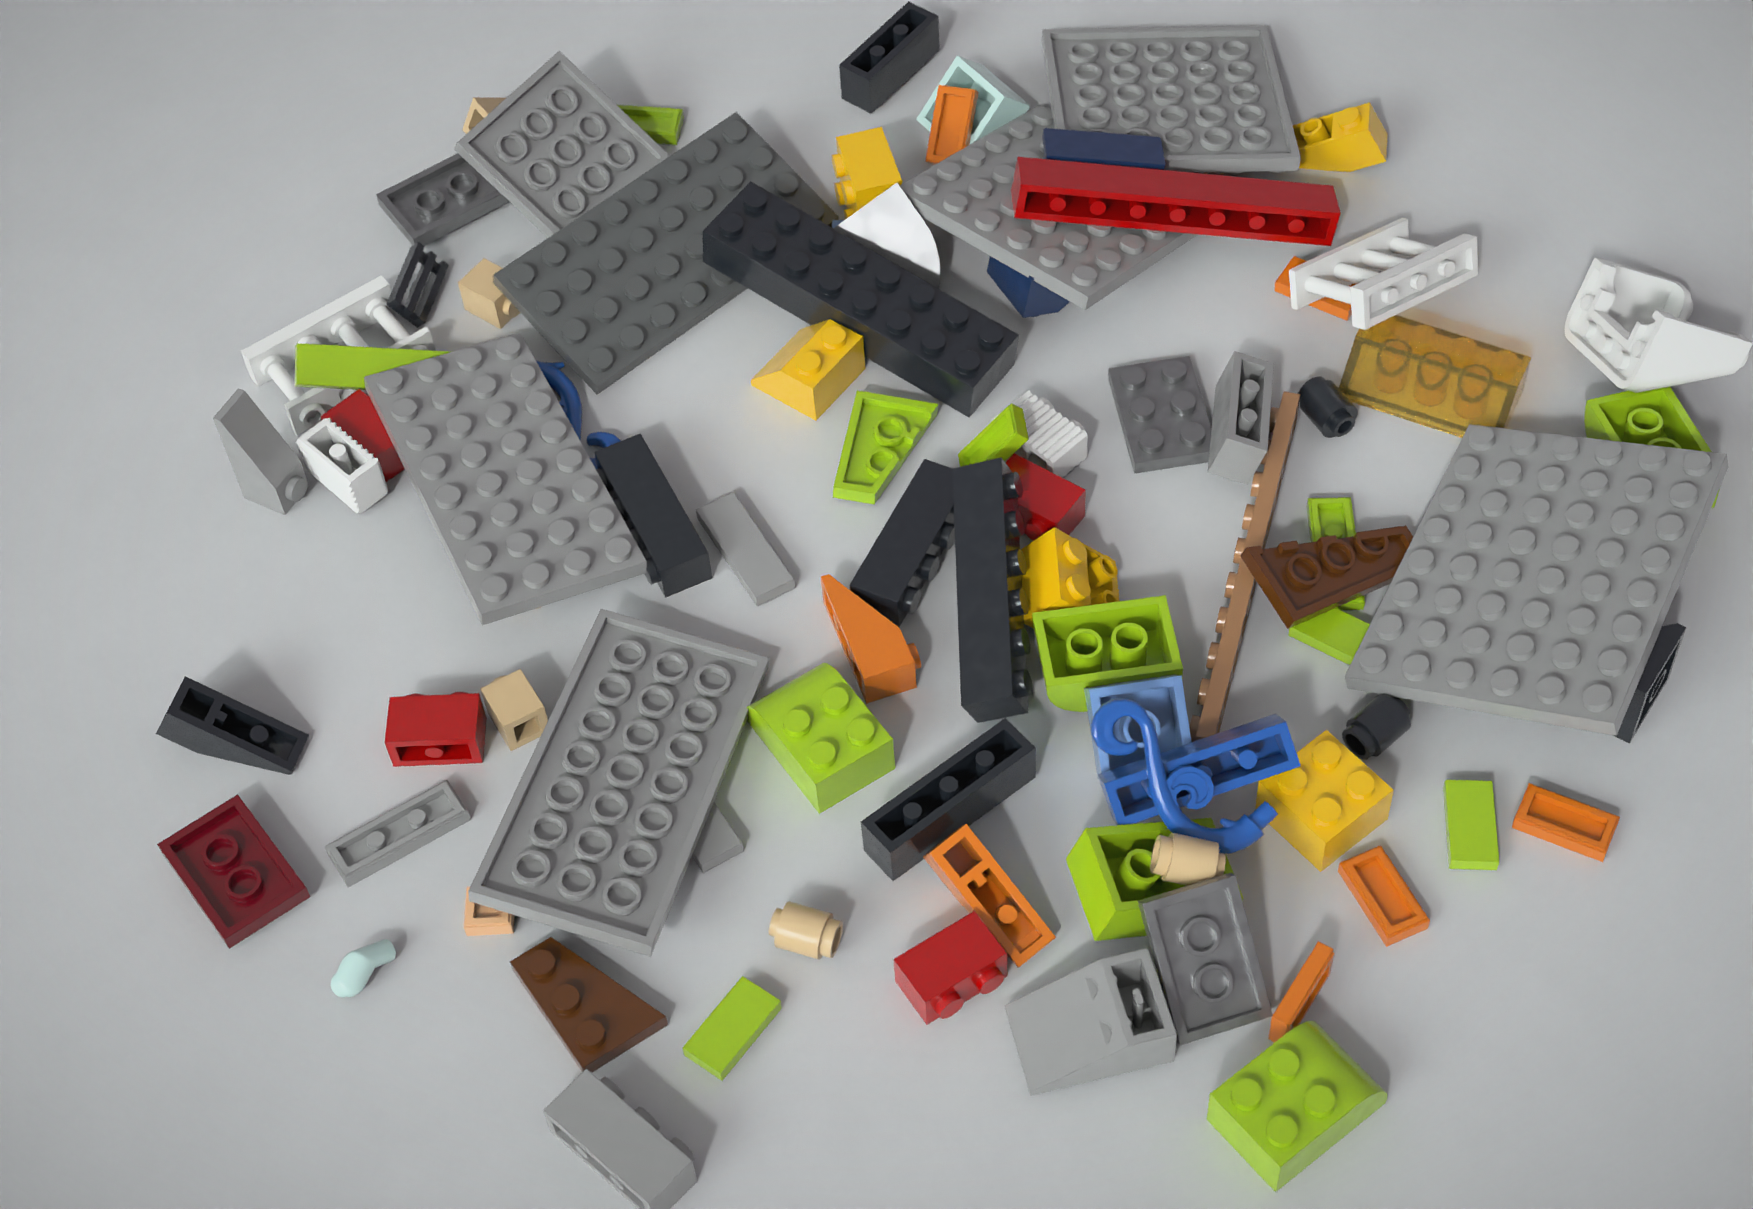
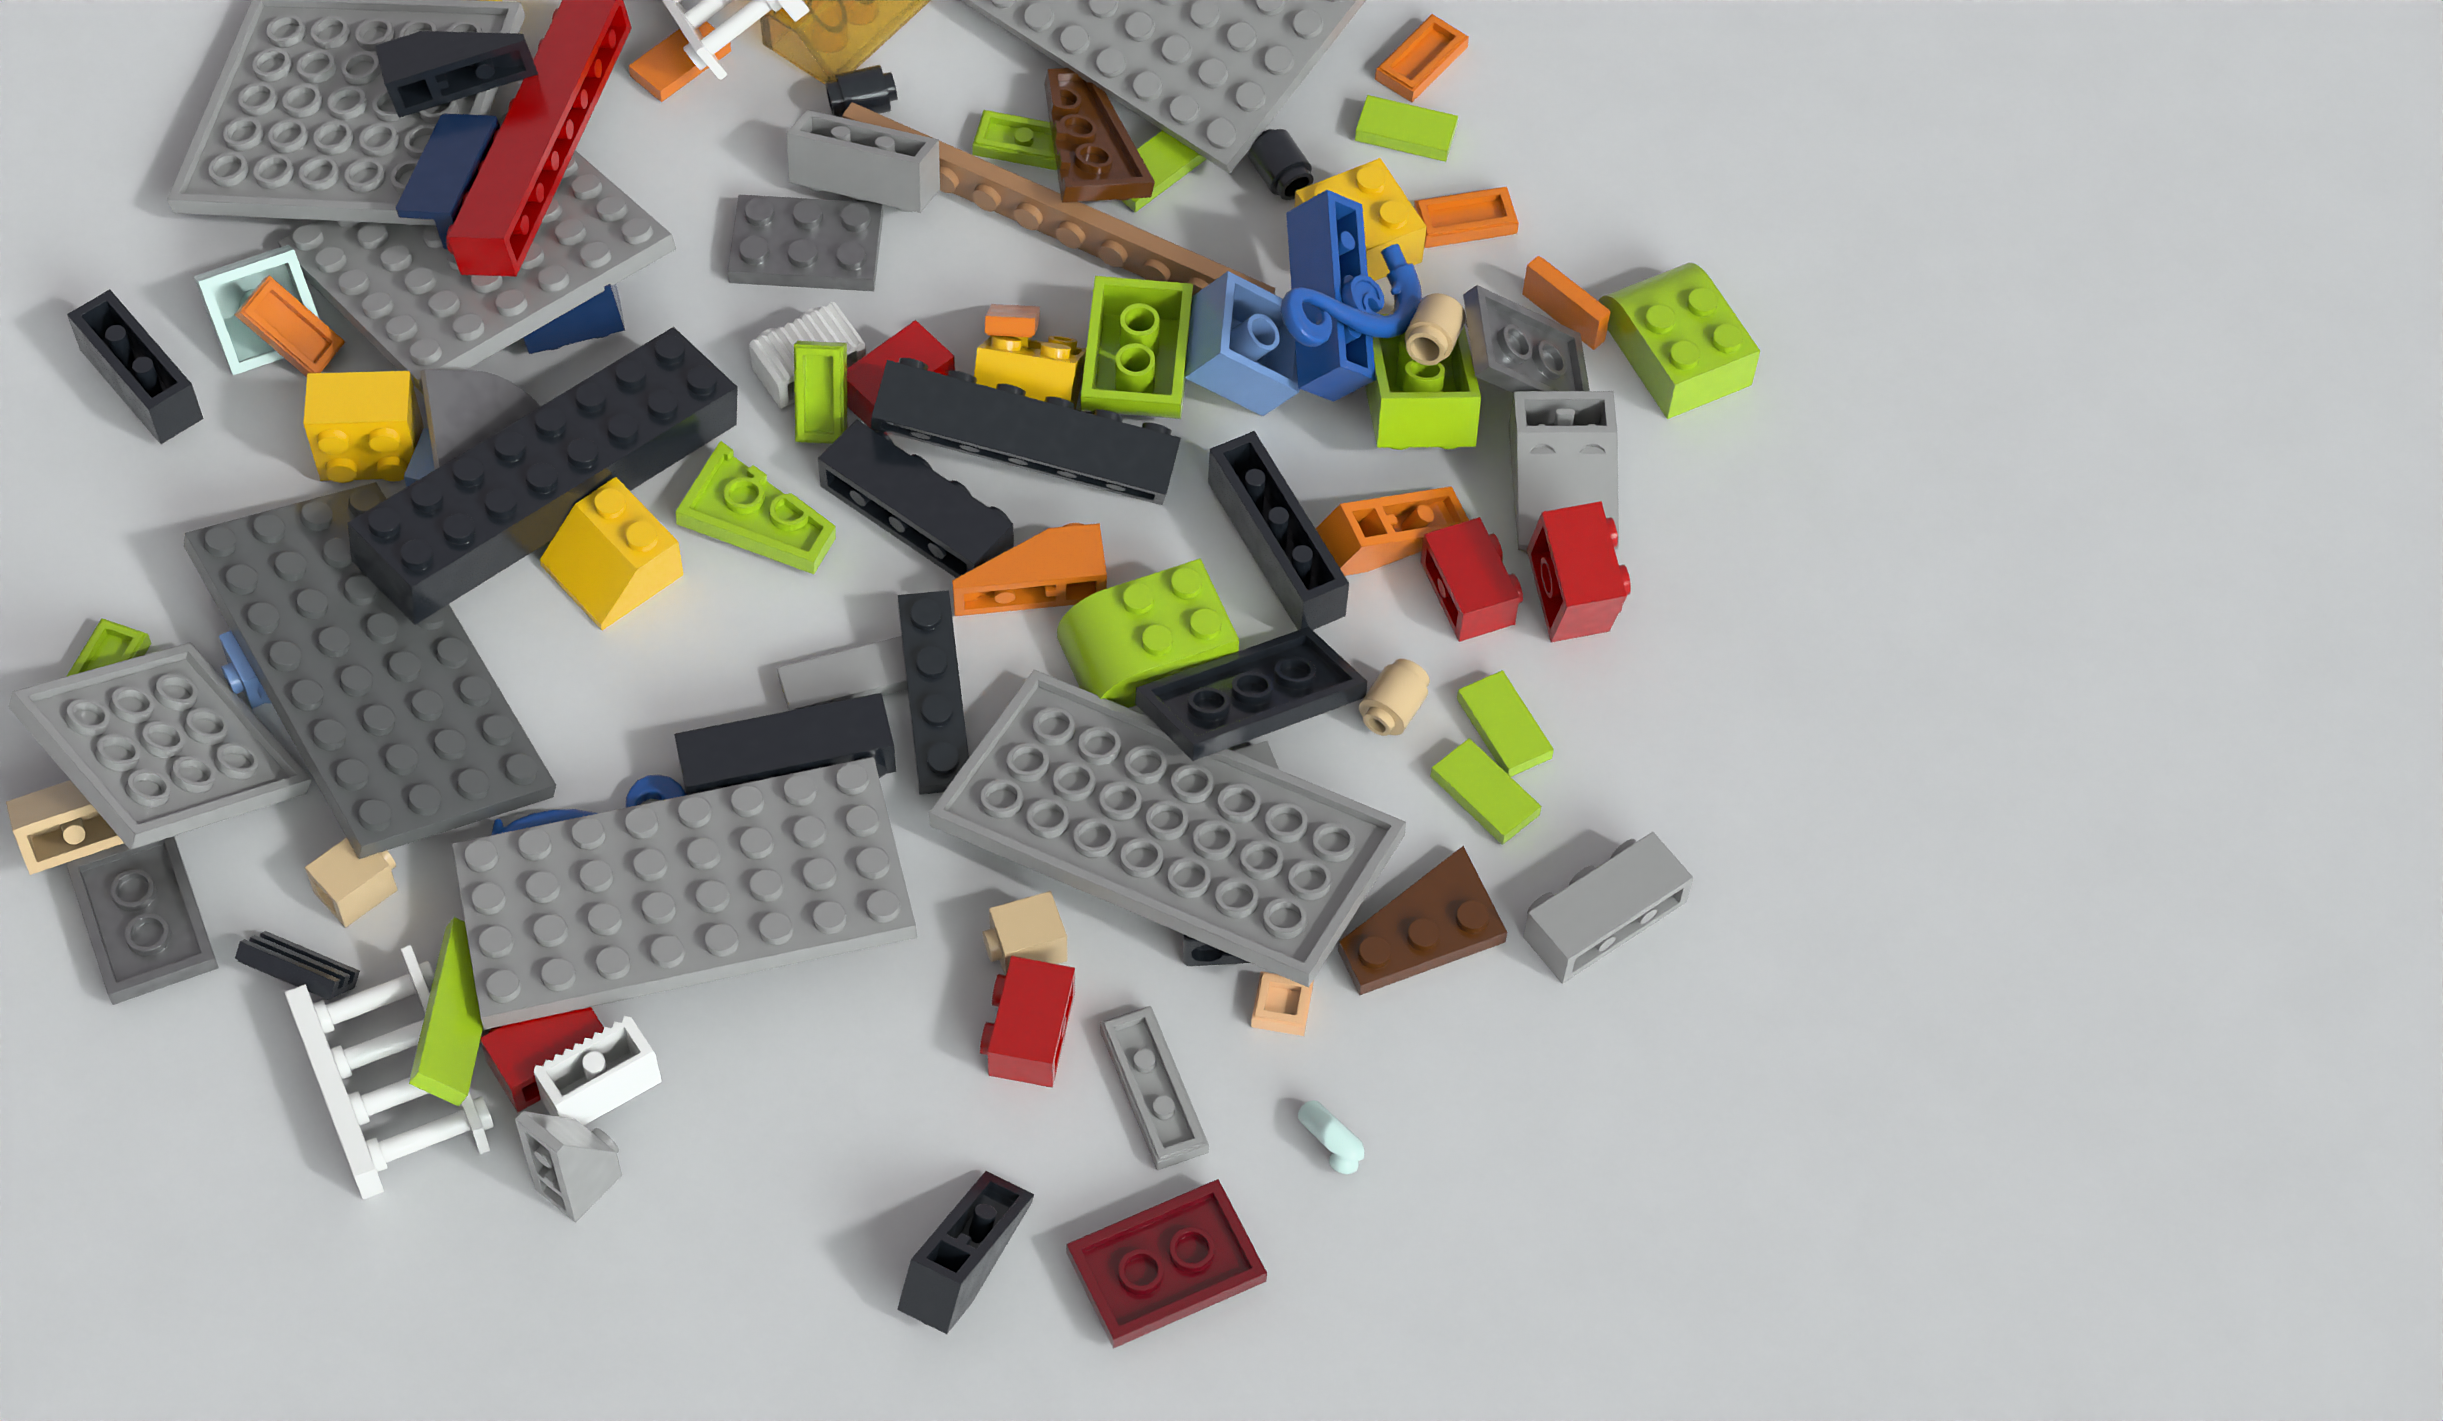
camera: 85 degrees left, 5 degrees up
(736, 592) = (933, 688): none -> black plate
(770, 810) = (1250, 693): none -> black plate
(807, 1031) = (1505, 723): none -> lime tile
(960, 1042) = (1578, 571): none -> red brick
(1113, 558) = (1012, 320): none -> orange tile
(1197, 119) = (448, 66): none -> black slope

